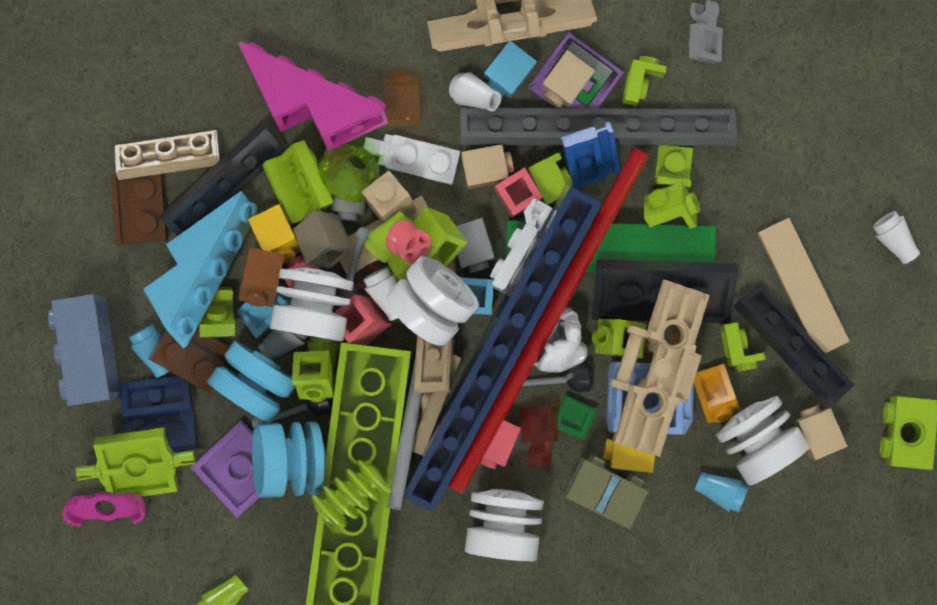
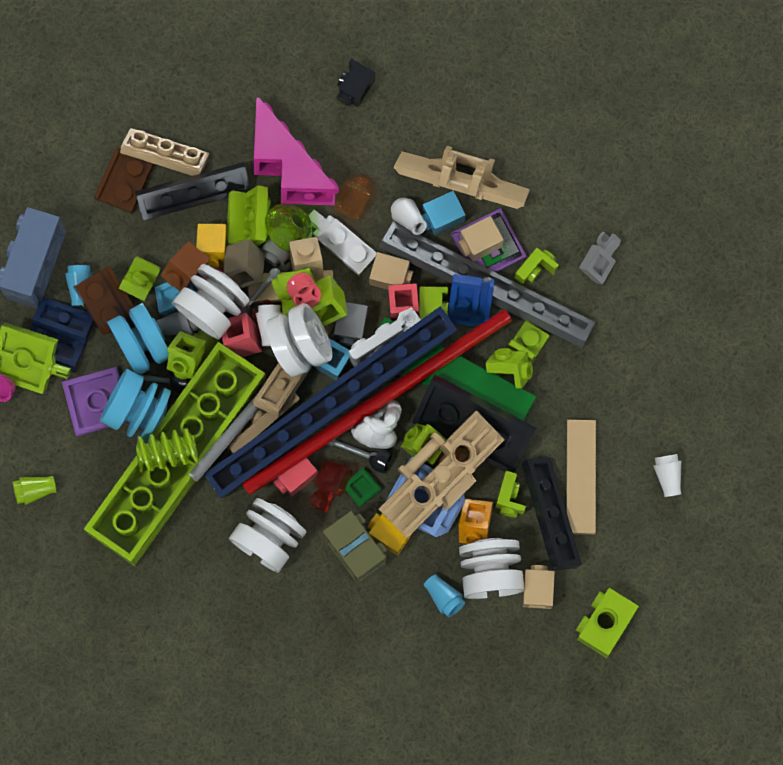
camera: 30 degrees right, 10 degrees down
(202, 260) = (148, 237): medium azure slope -> none

